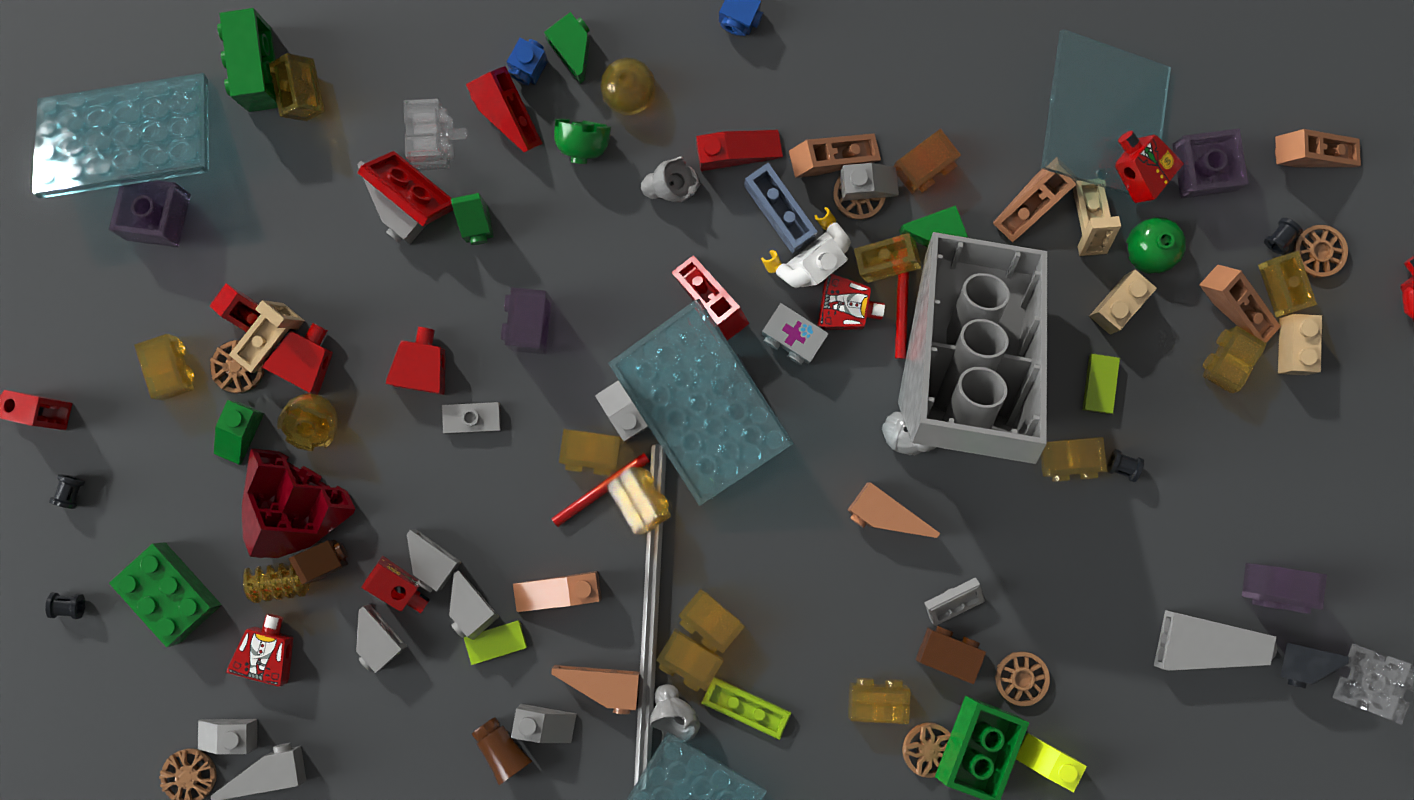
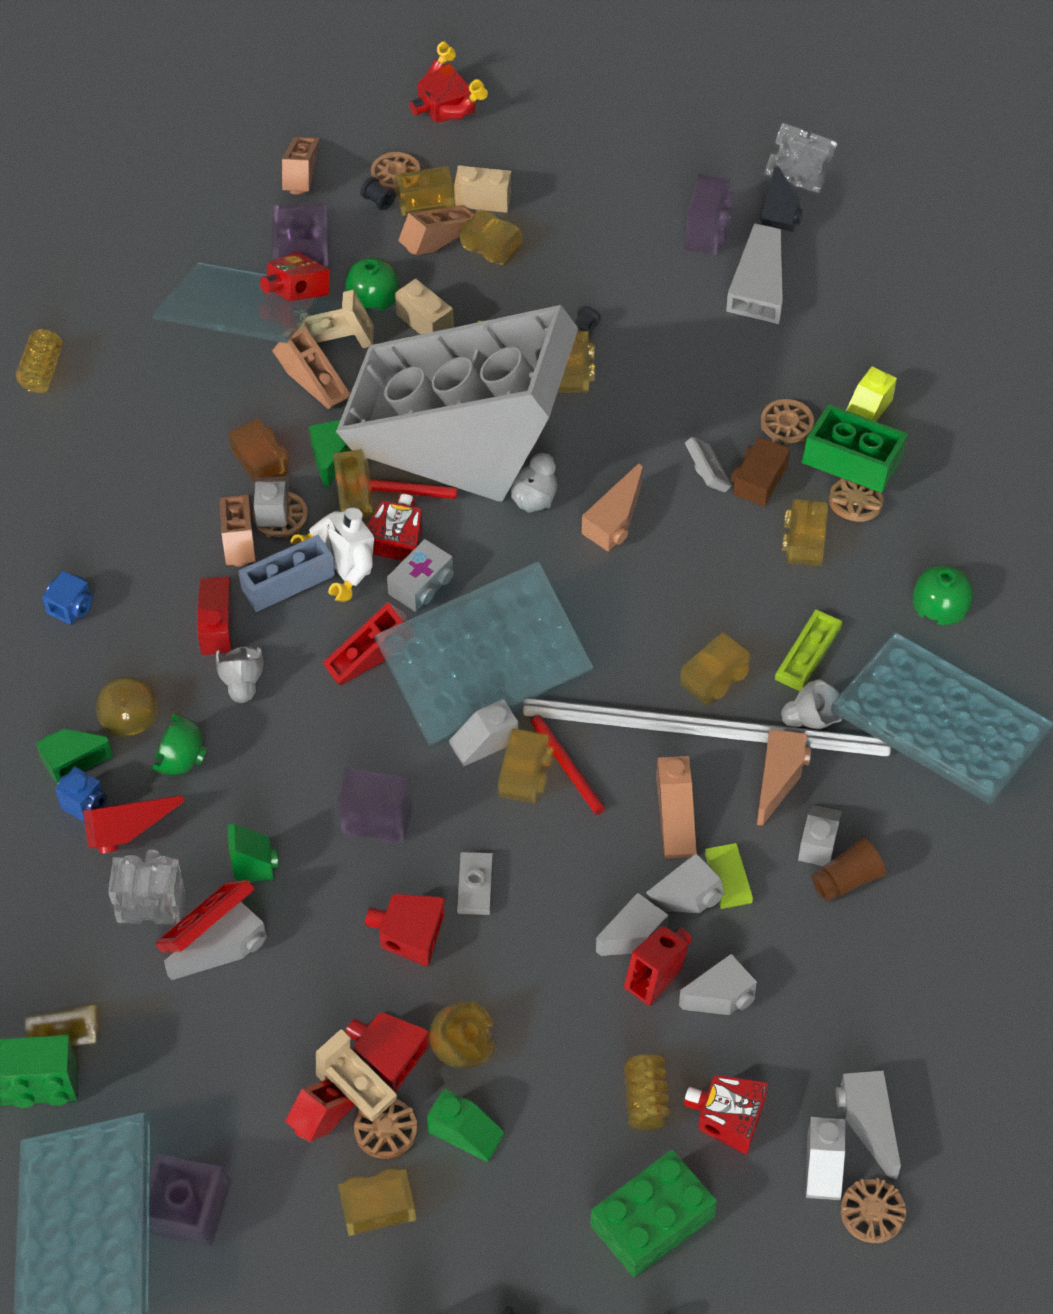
camera: 80 degrees left, 30 degrees down
(287, 506) = (561, 1075): dark red brick -> none
(319, 561) = (626, 1036): reddish brown slope -> none
(639, 500) = (582, 716): clear yellow brick -> none
(689, 660) = (756, 690): clear yellow brick -> none

